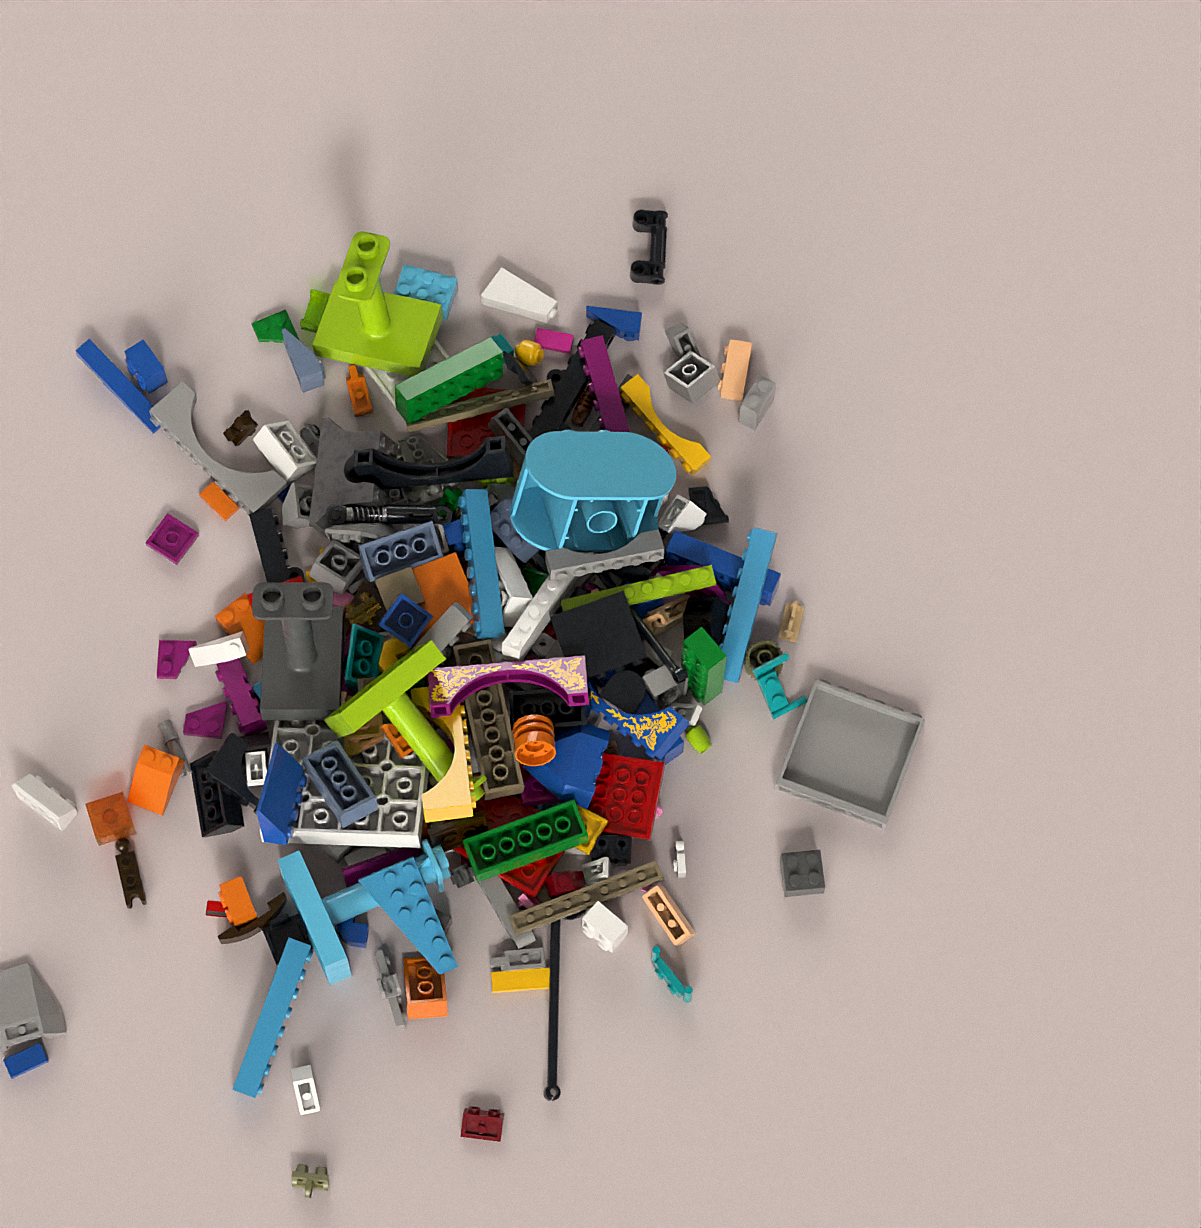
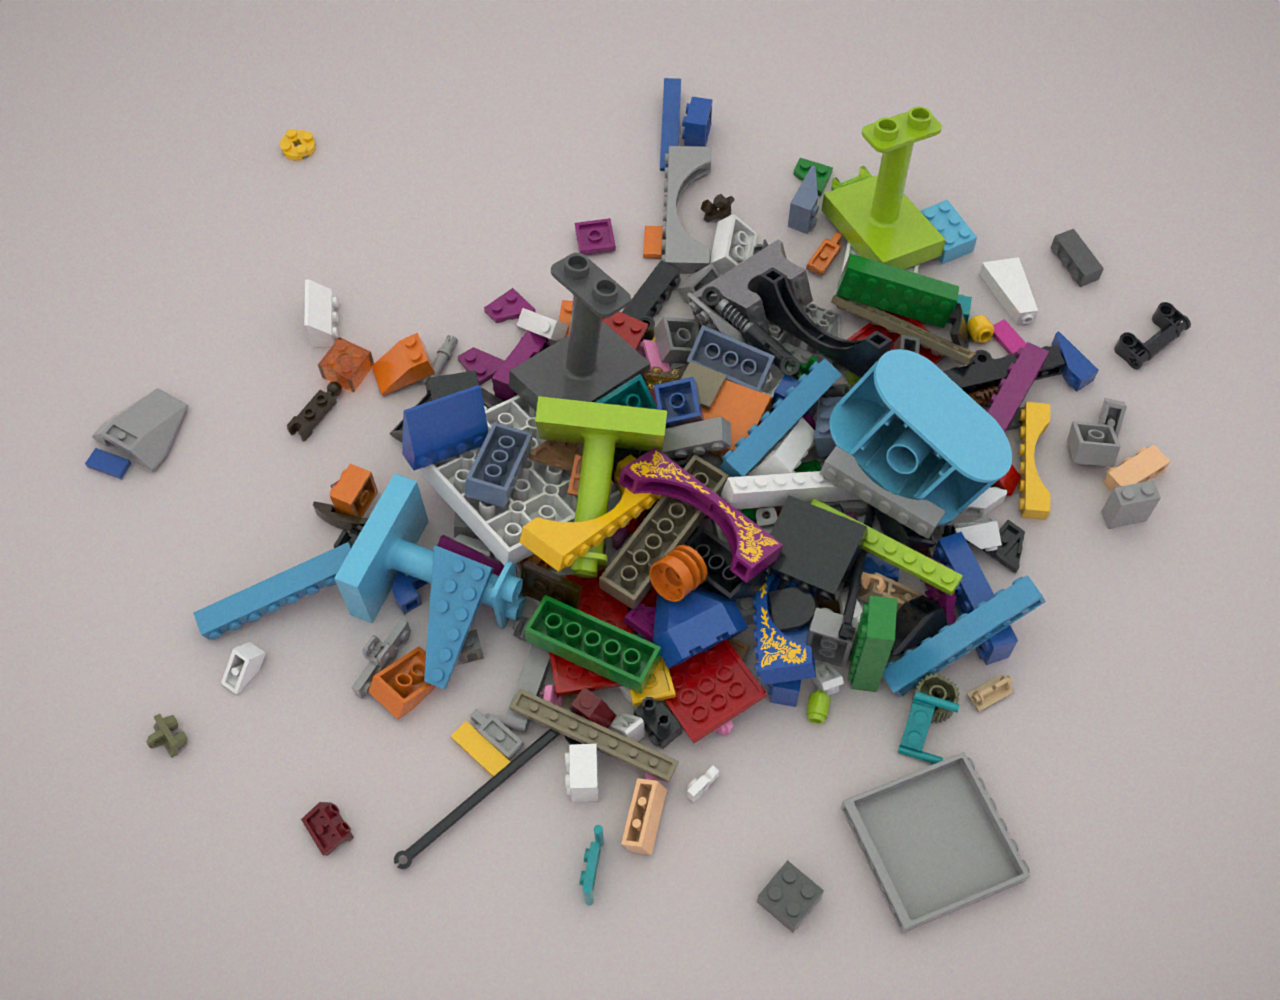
camera: 50 degrees right, 10 degrees down
(538, 227) = (1076, 257): none -> dark grey brick

